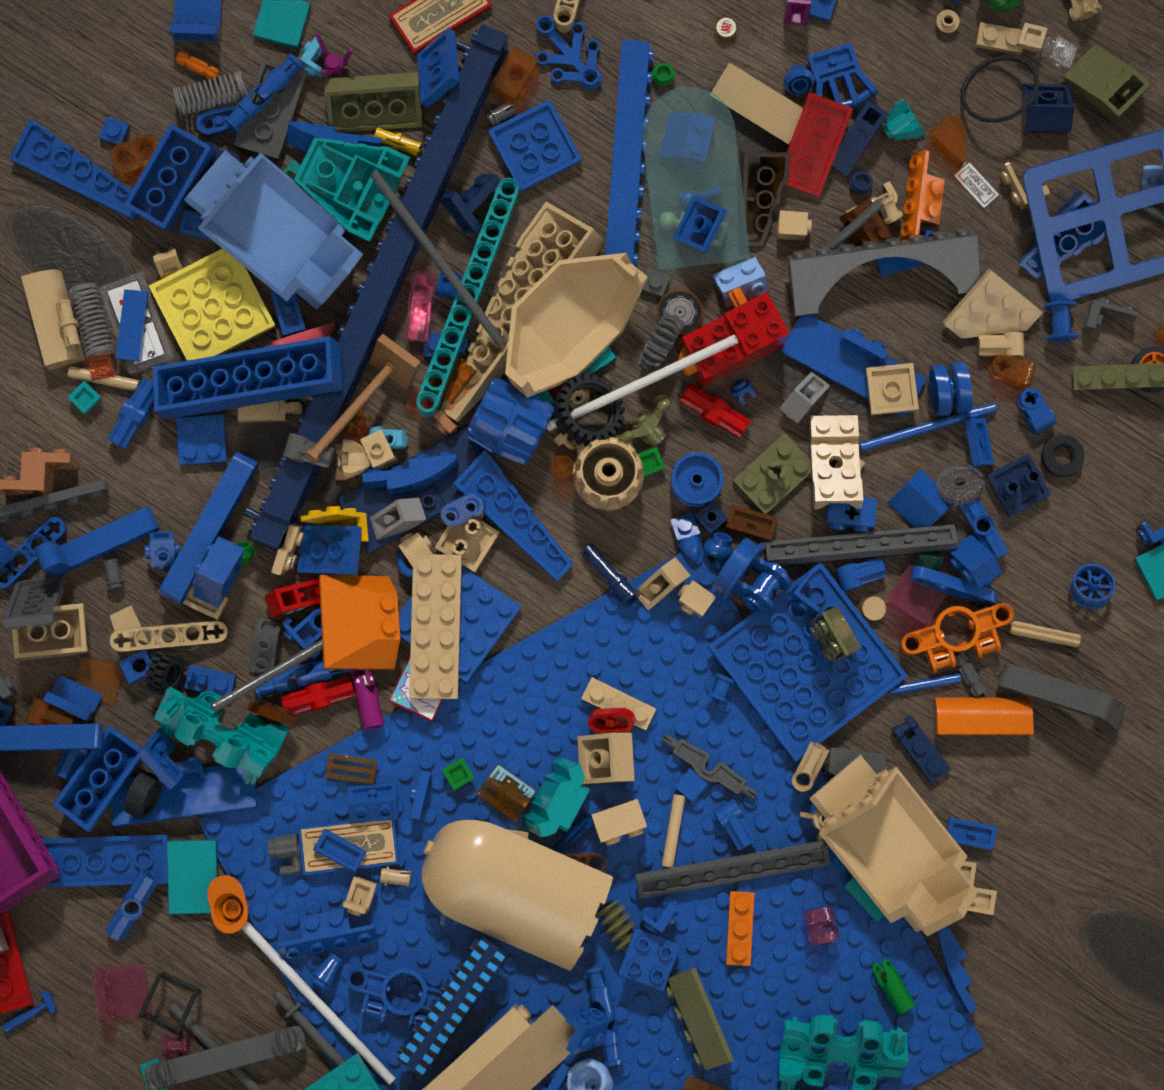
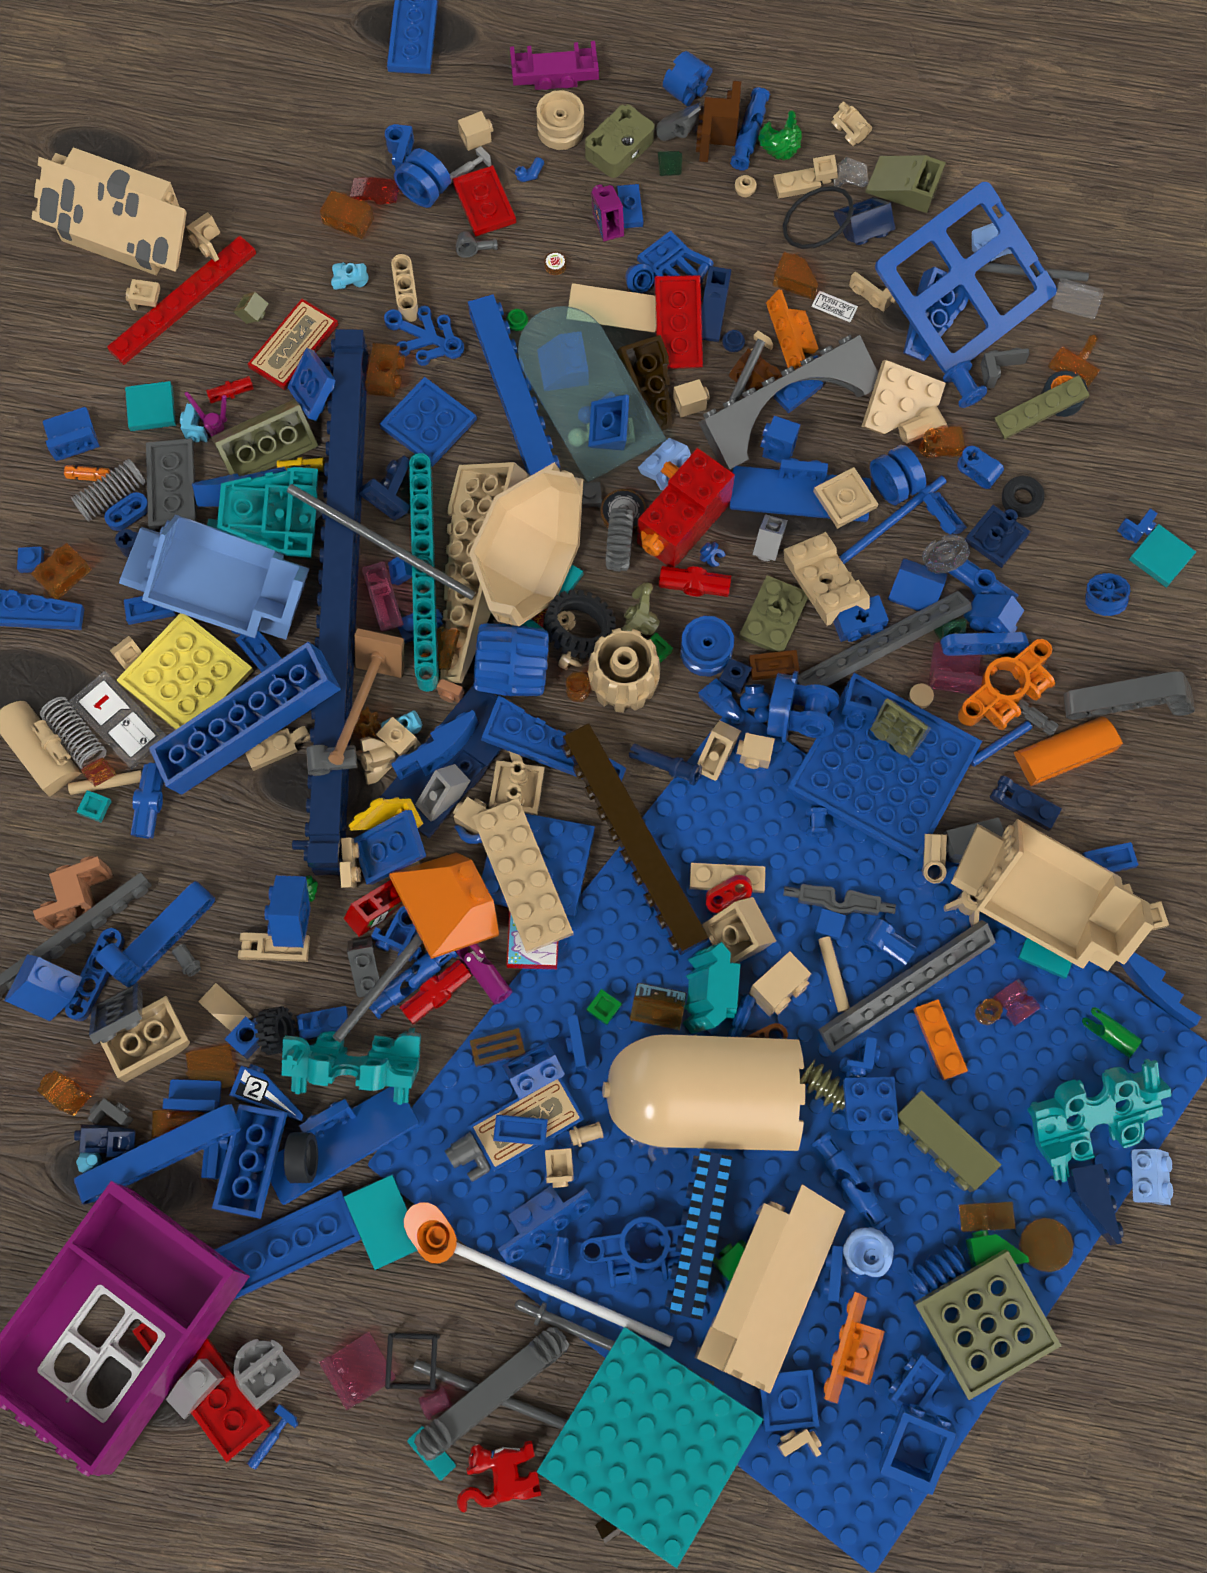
camera: 20 degrees left, 10 degrees down
(43, 957) = (262, 1371): none -> light grey slope
(126, 916) = (332, 1291): blue piece -> none
(131, 717) = (259, 1090): none -> slope
(132, 325) = (114, 721): blue tile -> none
(155, 756) = (298, 1110): blue plate -> none
(156, 635) = (255, 1003): tan beam -> none
(161, 549) = (219, 909): blue brick -> none
(170, 177) = (96, 570): blue brick -> none
(201, 440) = (223, 800): blue plate -> none
(209, 526) = (262, 873): blue beam -> none
(266, 709) = (391, 1025): reddish brown plate -> none
(275, 82) = (164, 457): blue piece -> none
(362, 34) = (230, 389): none -> red pin
(411, 405) = (412, 688): clear orange tile -> none
(461, 509) = (500, 757): blue plate -> none
(470, 1035) = (730, 1258): none -> green brick
(499, 114) = (385, 407): dark grey pin -> none
(549, 632) = (634, 839): none -> dark brown brick
(589, 1030) = (846, 1199): blue bracket -> none
(649, 379) = (625, 568): white piece -> none
(787, 928) = (990, 1004): none -> clear orange bush
(855, 306) = (779, 439): none -> blue brick
(855, 575) = (890, 672): blue piece -> none
(889, 209) = (770, 352): tan bush -> none
(902, 123) = (747, 277): teal brick -> none
(1045, 634) = (1085, 654): tan axle -> none

